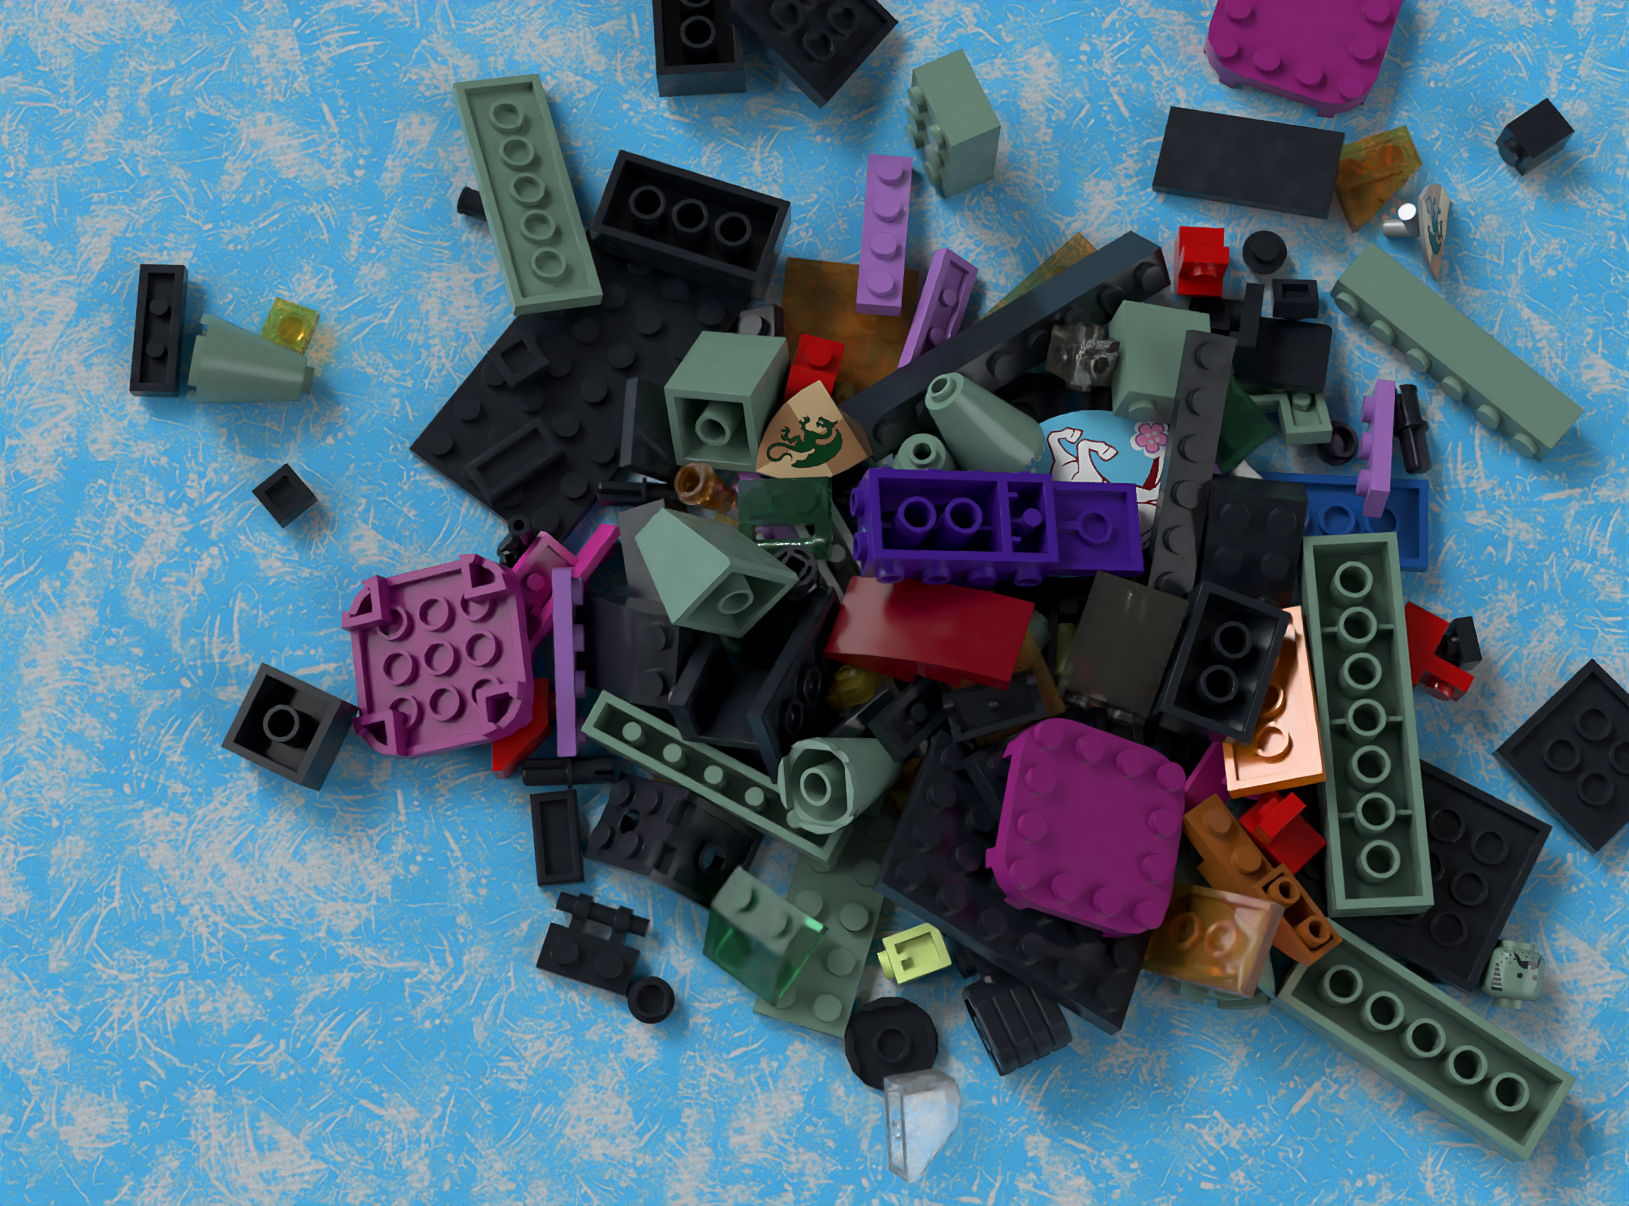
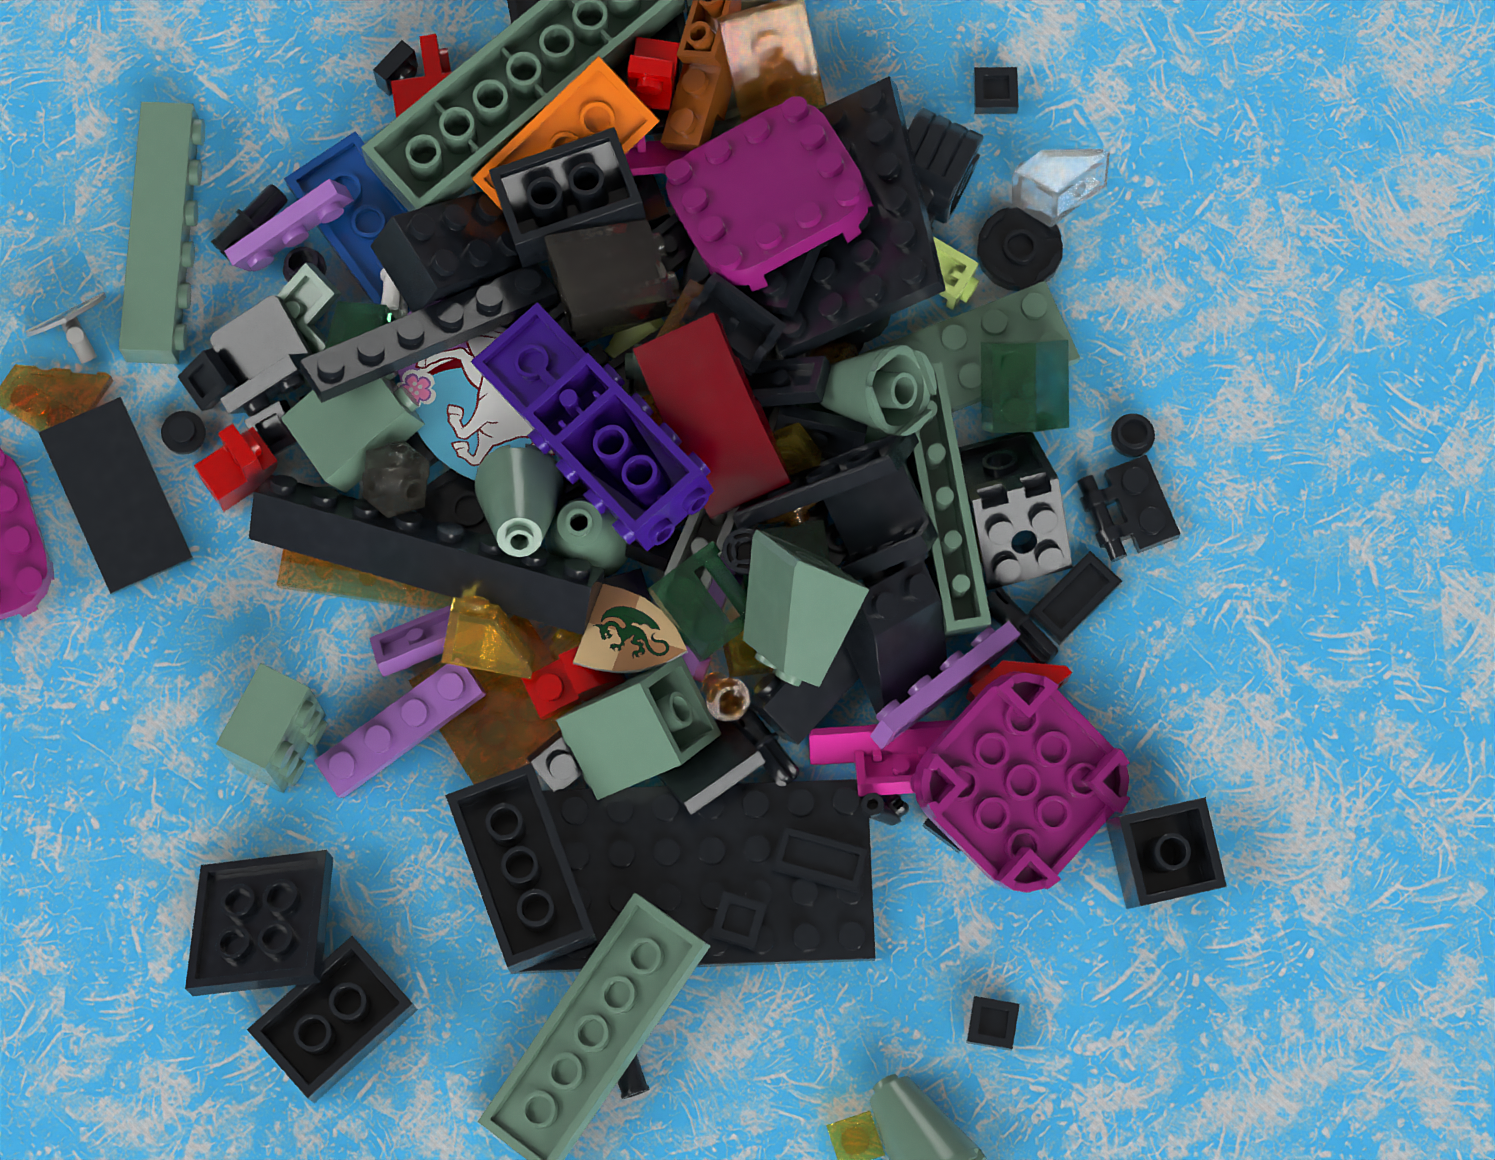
camera: 130 degrees left, 0 degrees up
(892, 331) = (485, 639): none -> clear yellow slope
(1049, 1140) = (995, 90): none -> black plate

